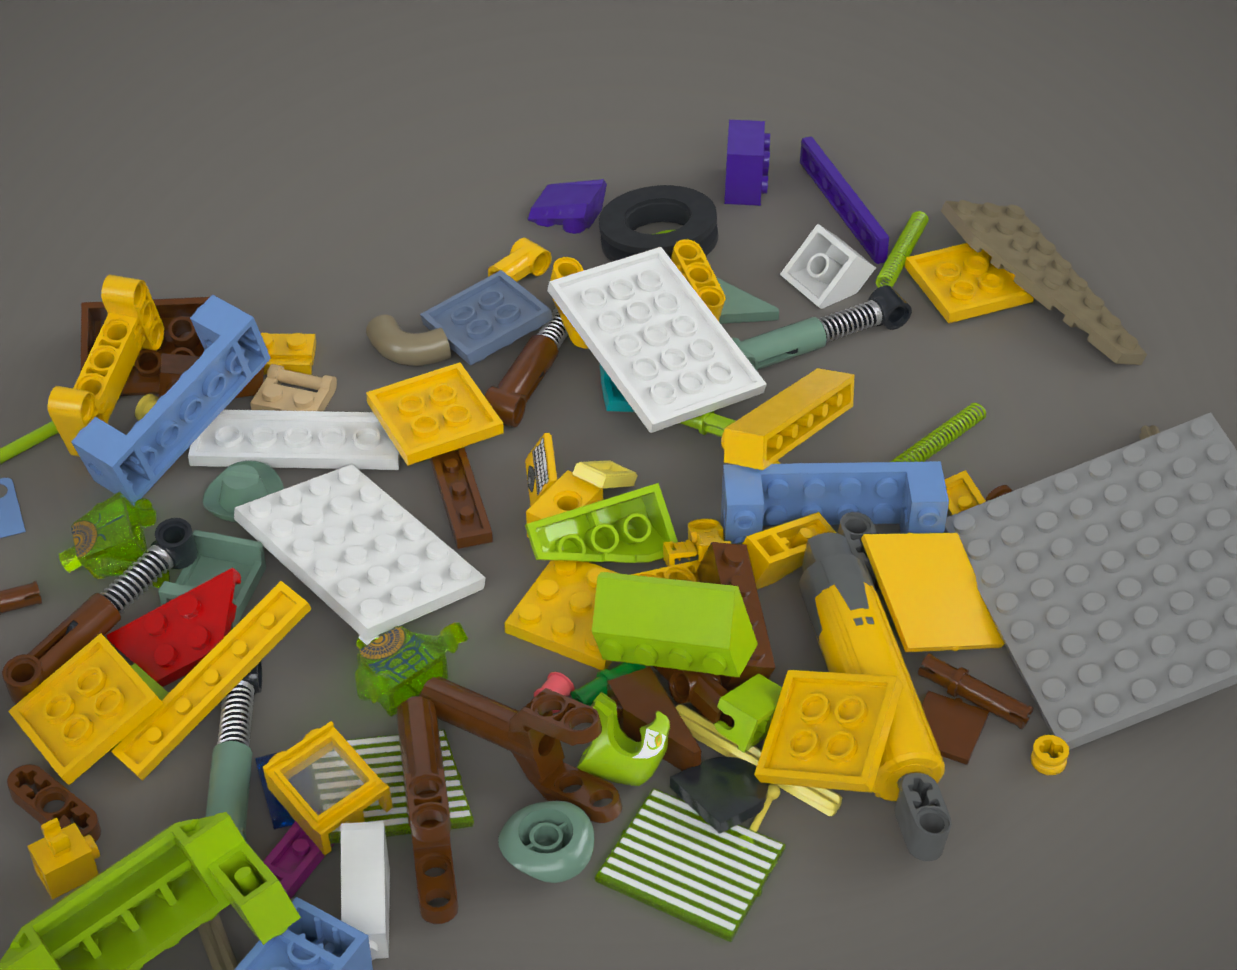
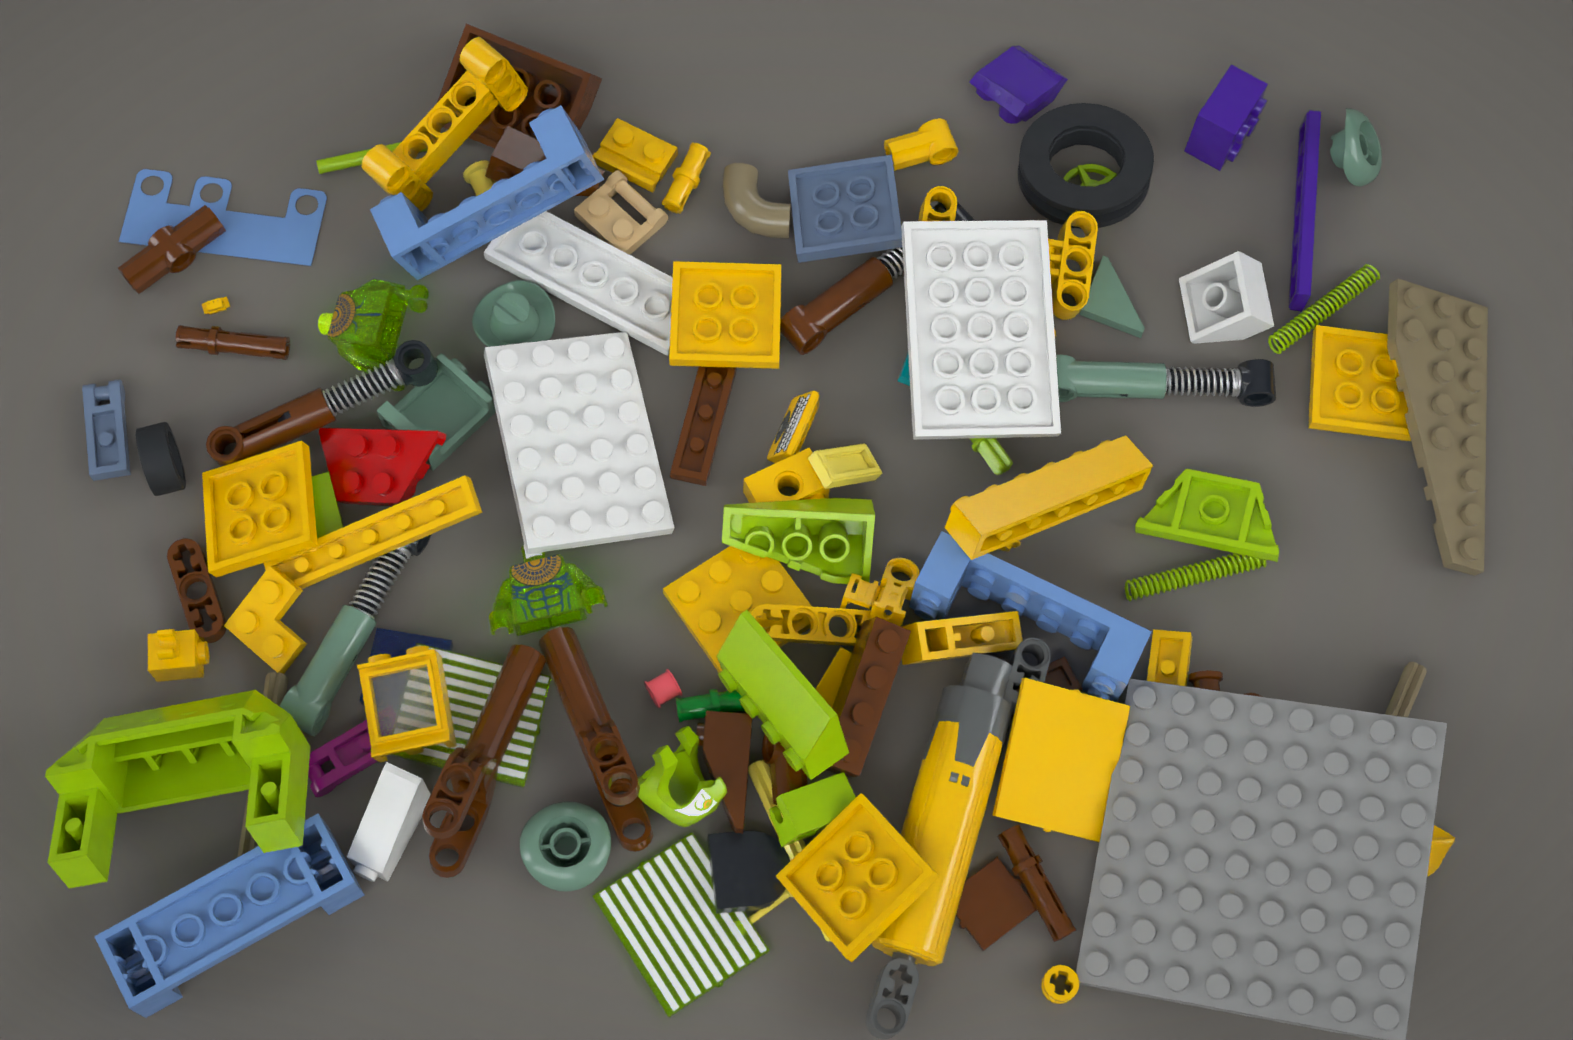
camera: 25 degrees right, 25 degrees up
(132, 794) = (259, 620): none -> yellow plate
(336, 349) = (686, 178): none -> yellow pin
(851, 150) = (1357, 149): none -> sand green hat
(923, 395) = (1213, 514): none -> lime wing

